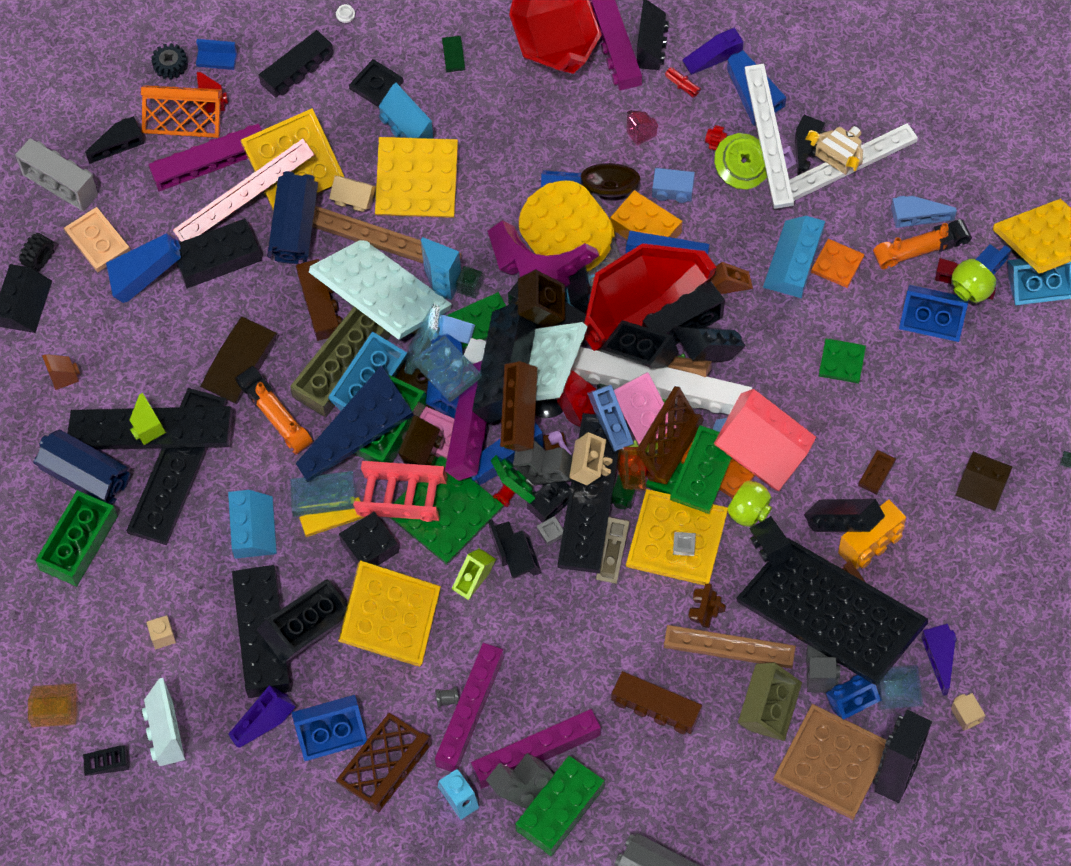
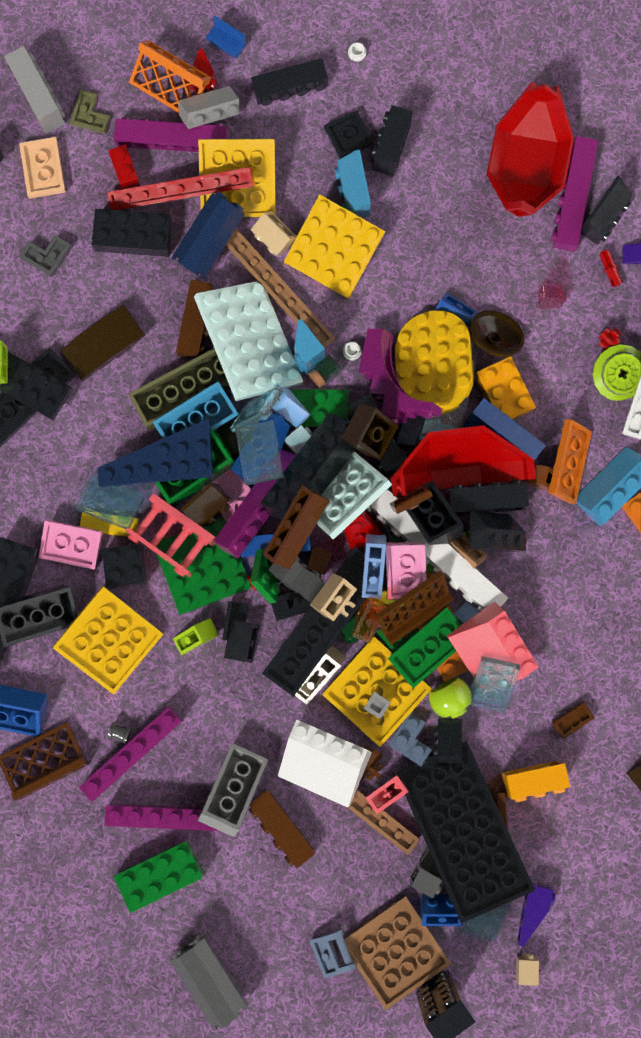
camera: 25 degrees right, 20 degrees up
(117, 180) = (85, 116): none -> olive tile
(119, 138) = (107, 78): black slope -> none
(141, 266) = (62, 215): blue slope -> none
(143, 316) = (48, 259): none -> dark grey plate
(169, 68) = (186, 30): black wheel -> none
(177, 201) = (124, 167): none -> red brick
(232, 115) = (208, 107): none -> light grey brick
(251, 524) = (40, 497): dark azure slope -> none
(262, 396) = (104, 393): orange piece -> none
(304, 549) = (70, 544): none -> bright pink plate
(420, 67) = (391, 140): none -> black brick
(453, 54) = (429, 139): dark green tile -> none
(458, 791) = (84, 821): medium azure torso -> none
(462, 295) = (317, 378): none -> nougat tile
(483, 258) = (352, 351): none -> white plate
(523, 782) = (135, 844): dark grey brick -> none
(550, 530) = (277, 631): light grey plate -> none
(556, 437) = (322, 556): lavender hand -> none
(589, 682) = (233, 790): none -> light grey brick
(612, 340) = (410, 500): none -> reddish brown plate
(662, 619) = (323, 763): none -> white slope
(673, 185) = (548, 365): medium blue brick -> none
(732, 567) = (405, 740): none -> sand blue plate
(740, 617) = (387, 794): none -> coral slope
(741, 252) = (570, 461): none -> orange plate
(767, 796) = (327, 955): none -> sand blue plate
(770, 701) = (372, 875): olive slope -> none
(783, 470) = (494, 684): none -> clear light blue plate
(842, 360) = (601, 603): green plate -> none
(844, 515) = (520, 758): black brick -> none

